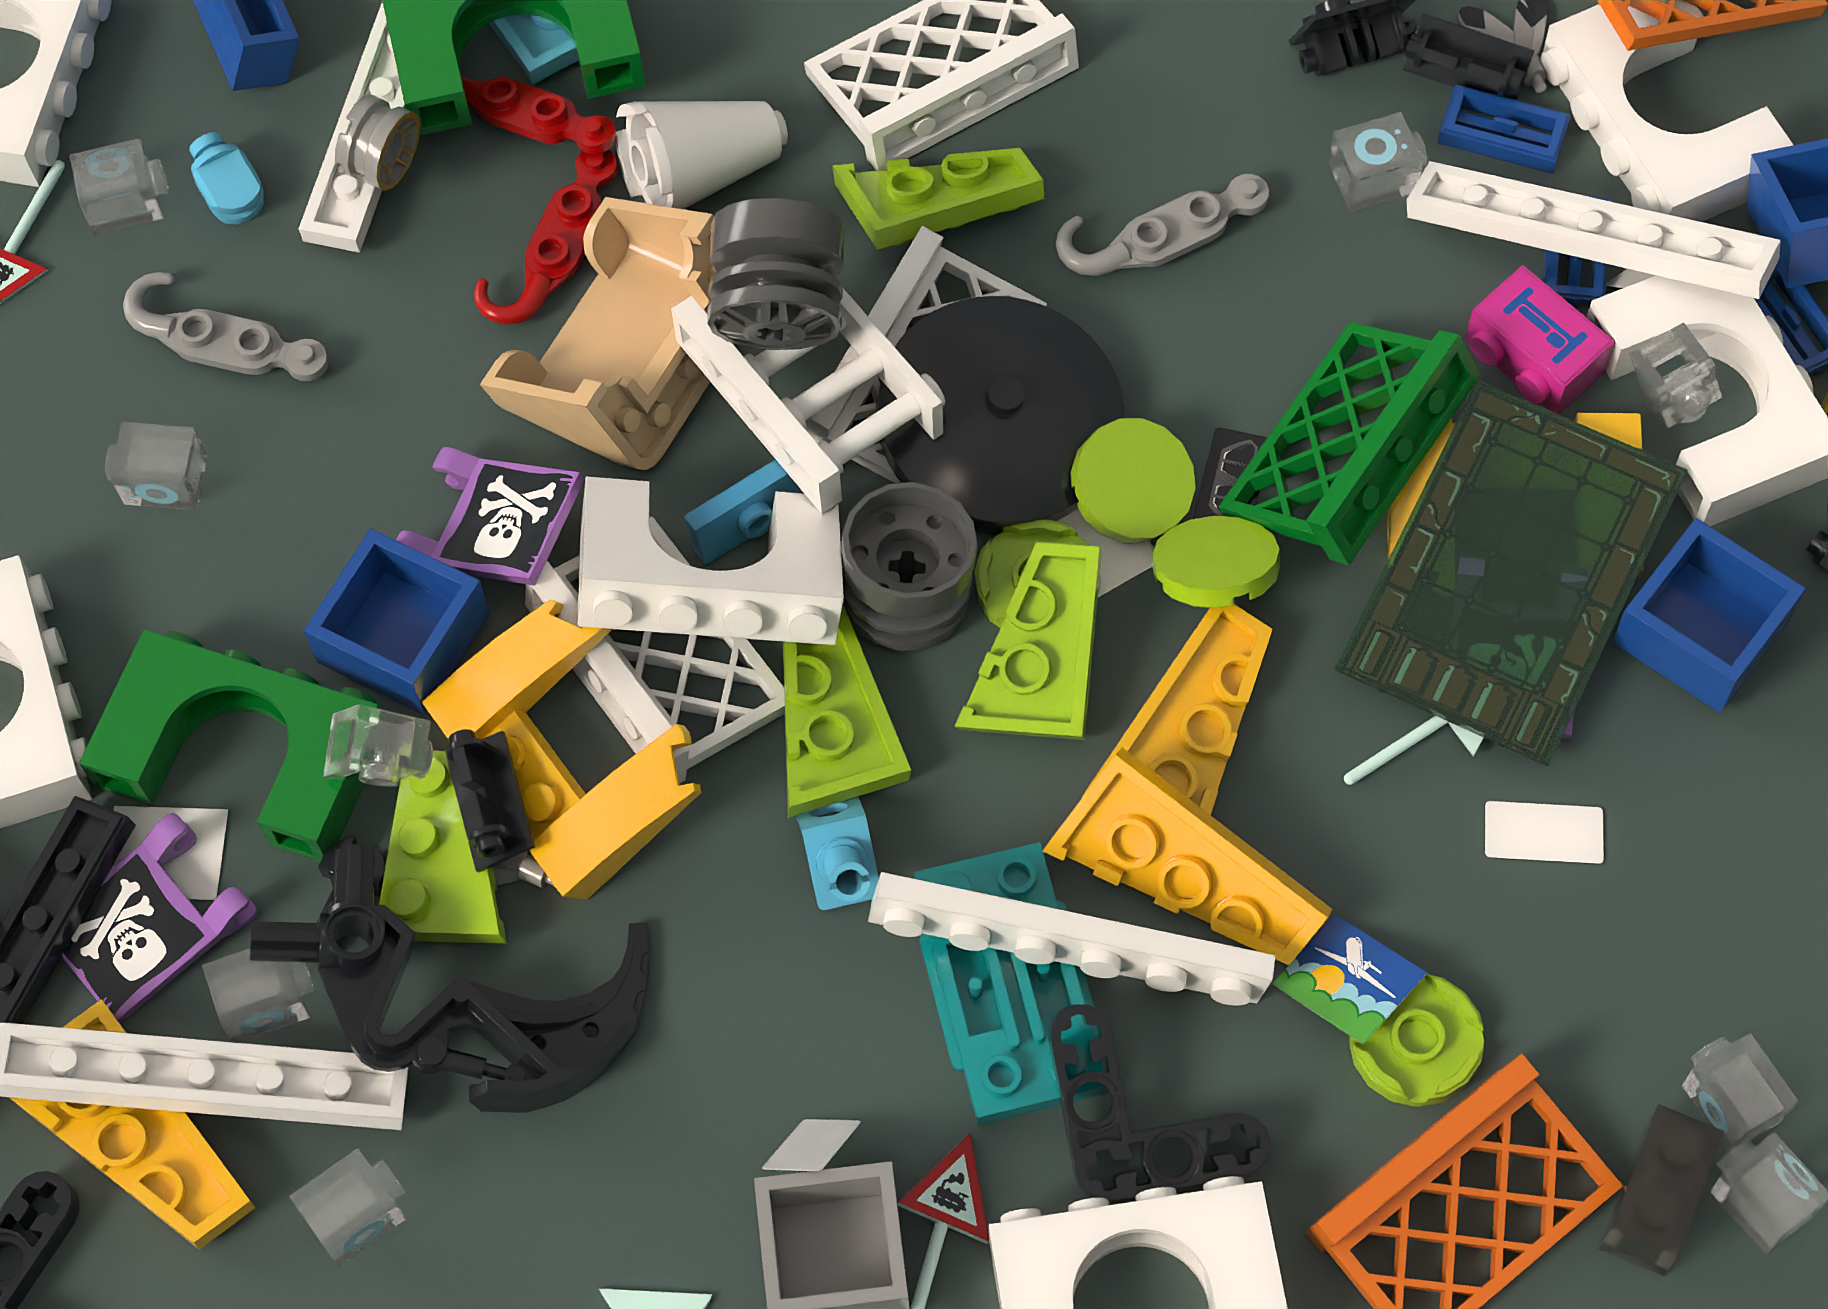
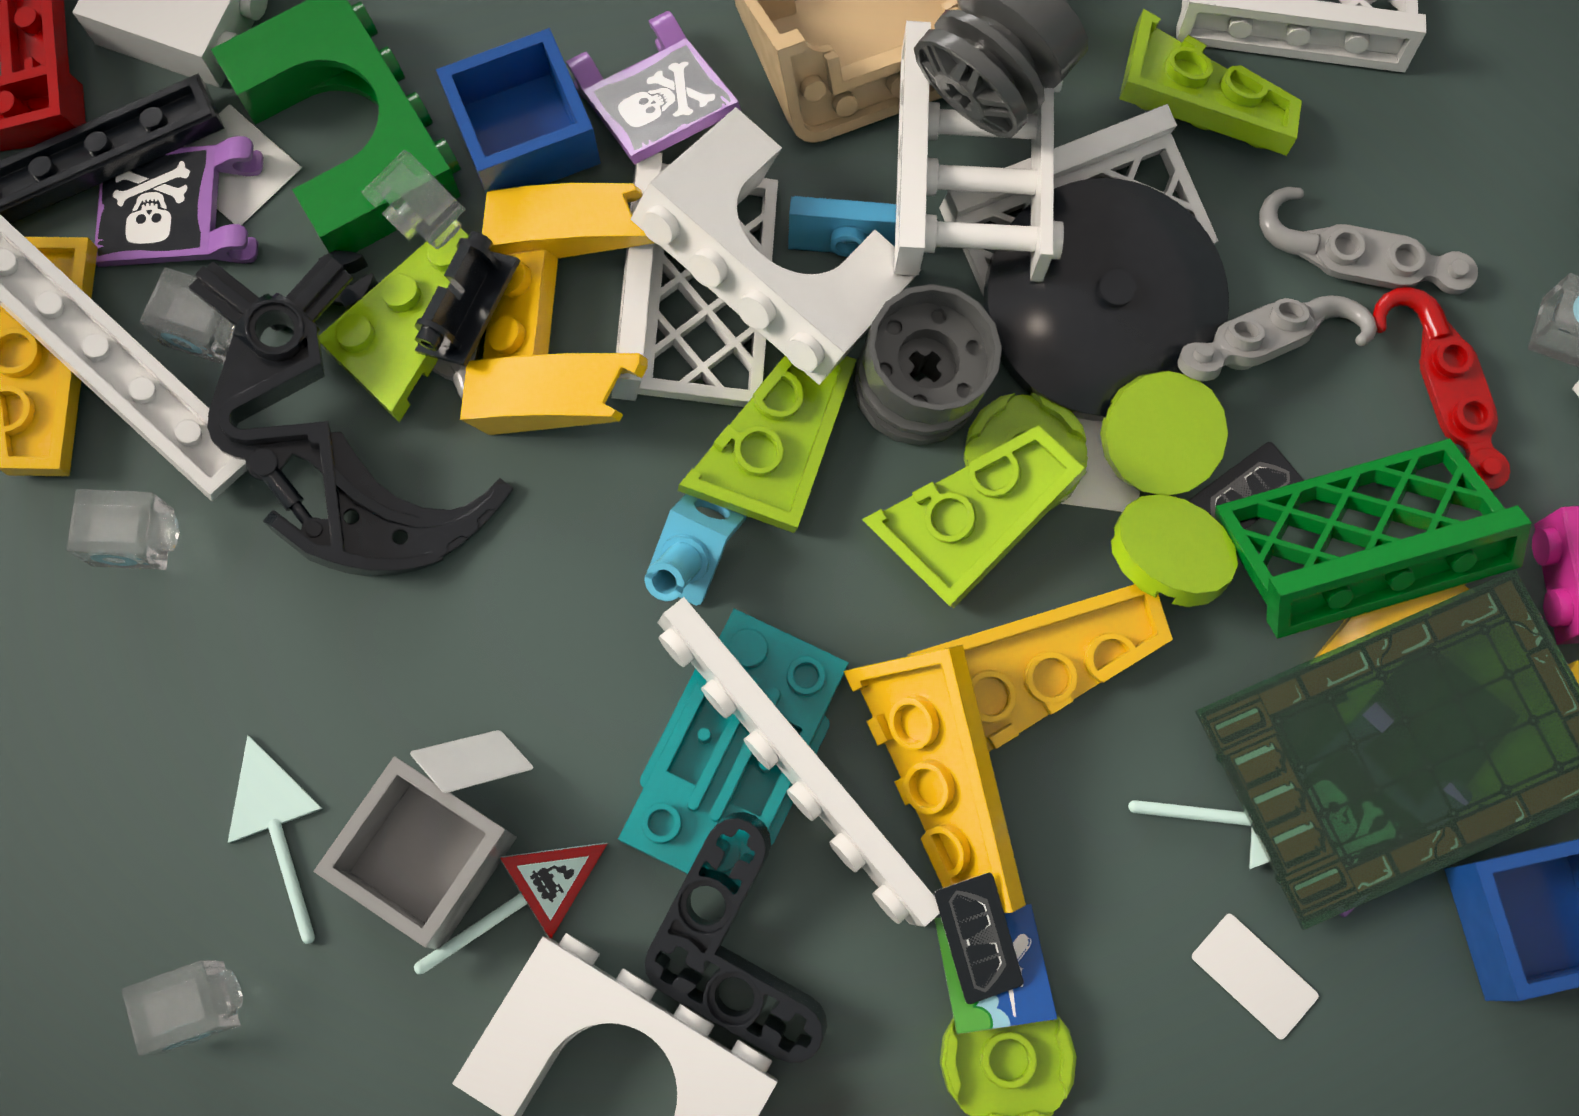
camera: 35 degrees right, 10 degrees up
(1149, 344) = (1270, 333): none -> light grey piece
(1315, 278) = (1453, 383): none -> red piece
(1319, 958) = (979, 938): none -> black sticker

